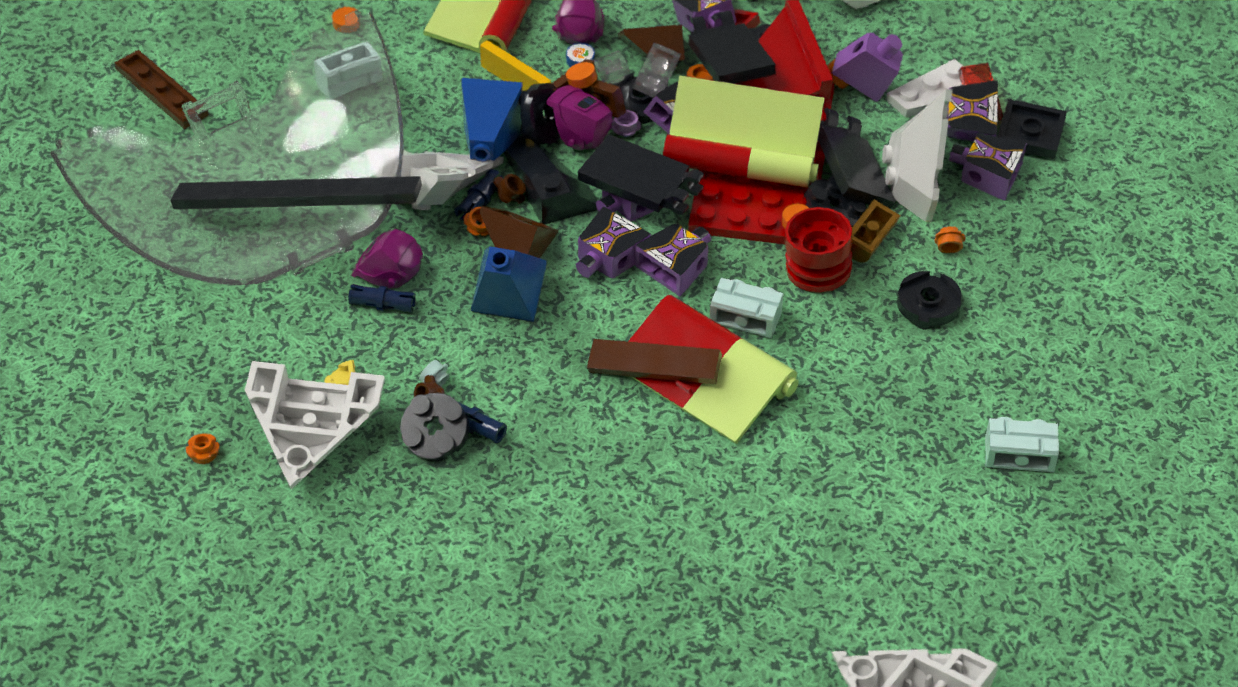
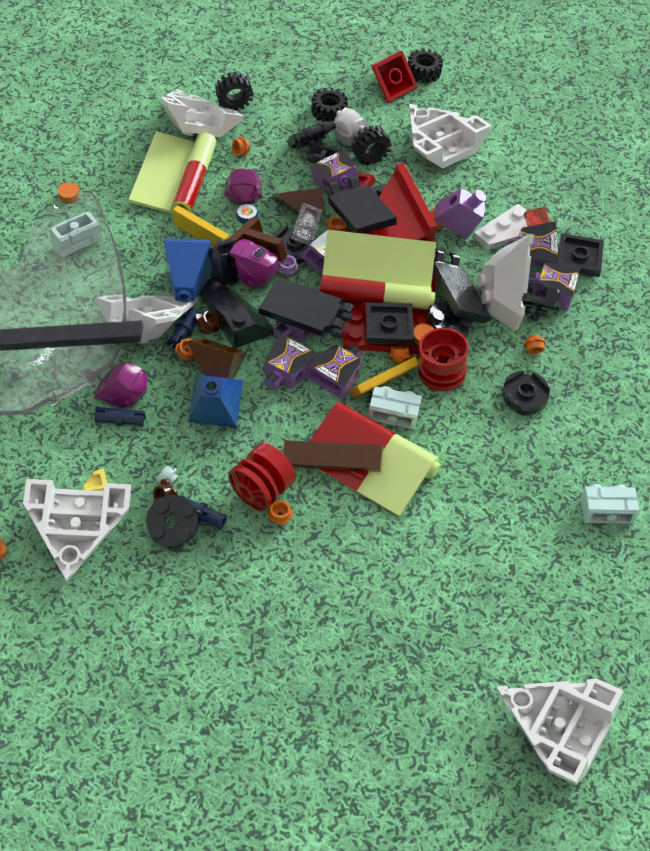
camera: 10 degrees left, 5 degrees up
(556, 379) = (262, 476): none -> red wheel
(577, 420) = (280, 507): none -> orange plate
(581, 75) = (252, 230): orange tile -> none
(612, 67) = (272, 222): clear plate -> none
(737, 268) = (384, 377): none -> yellow tile
(751, 201) = (389, 323): none -> black plate
(762, 241) = (399, 353): none -> orange plate
(871, 230) = (479, 339): pearl gold brick -> none
(976, 184) = (549, 301): none -> black hips

